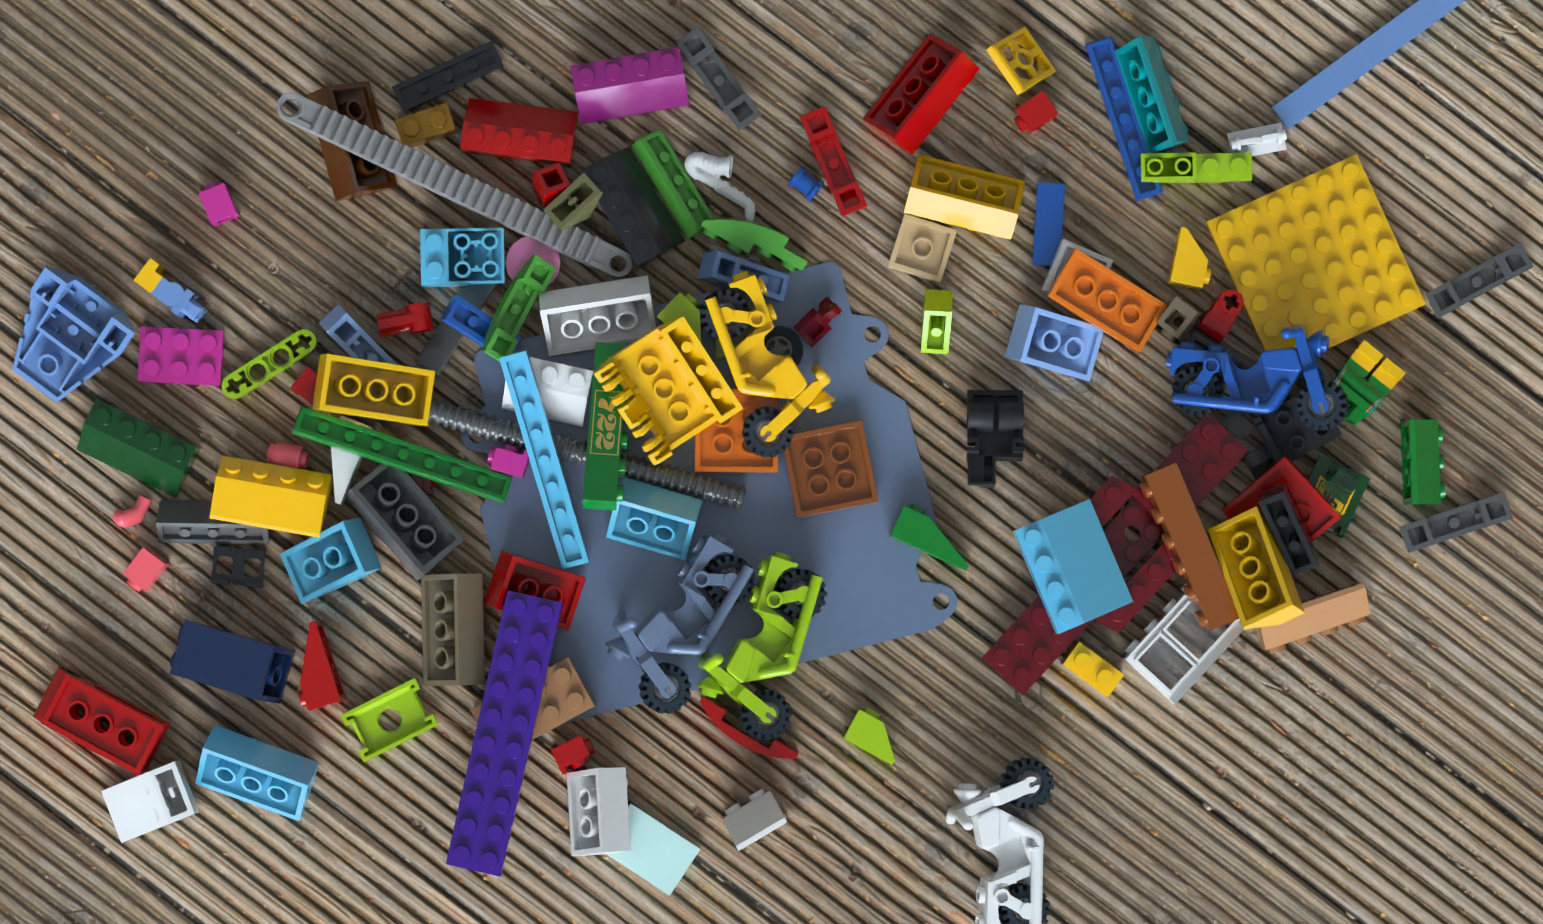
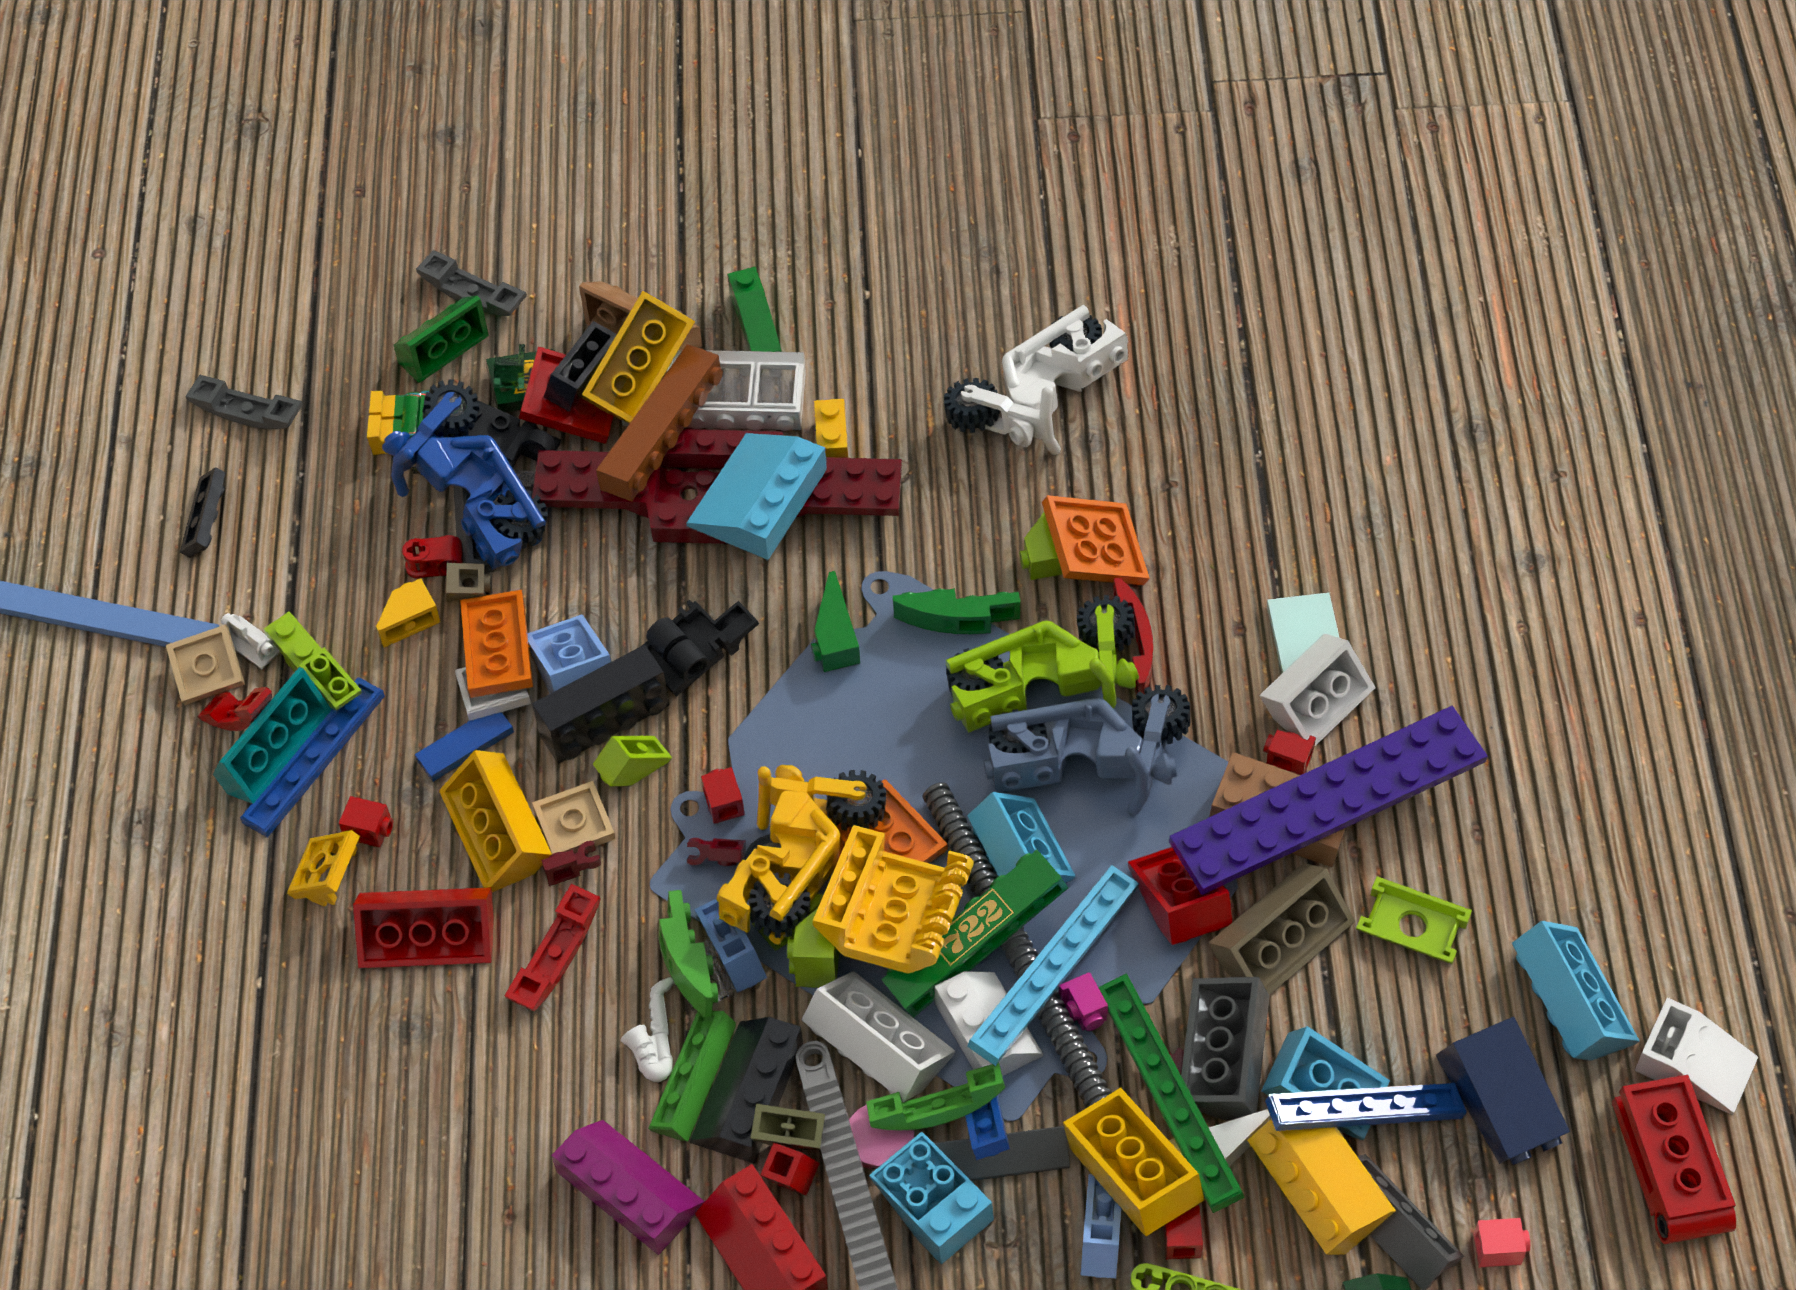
camera: 125 degrees left, 30 degrees down
(237, 576) = (1402, 1170): black piece -> none
(287, 455) = (1269, 1202): coral brick -> none
(288, 563) = (1365, 1106): none -> tile
(319, 675) = (1437, 1001): red slope -> none
(413, 319) = (1031, 1196): red piece -> none
(718, 79) = (557, 1105): dark grey slope -> none
(753, 819) = (1202, 560): white slope -> none
(806, 183) = (594, 958): blue bush -> none
(830, 469) = (843, 736): dark orange plate -> none
(840, 769) = (1095, 540): none -> orange plate
(858, 358) = (722, 795): none -> red brick
(878, 621) = (943, 613): none -> green slope
(893, 214) = (566, 865): none -> dark red plate
(991, 329) = (601, 704): none -> black brick
(1193, 86) = (234, 715): none -> red slope
(1250, 704) = (753, 310): none -> green slope
(1257, 95) = (205, 664): none -> tan plate
(1316, 258) = (325, 529): yellow plate -> none
(1399, 183) = (203, 512): none -> black plate

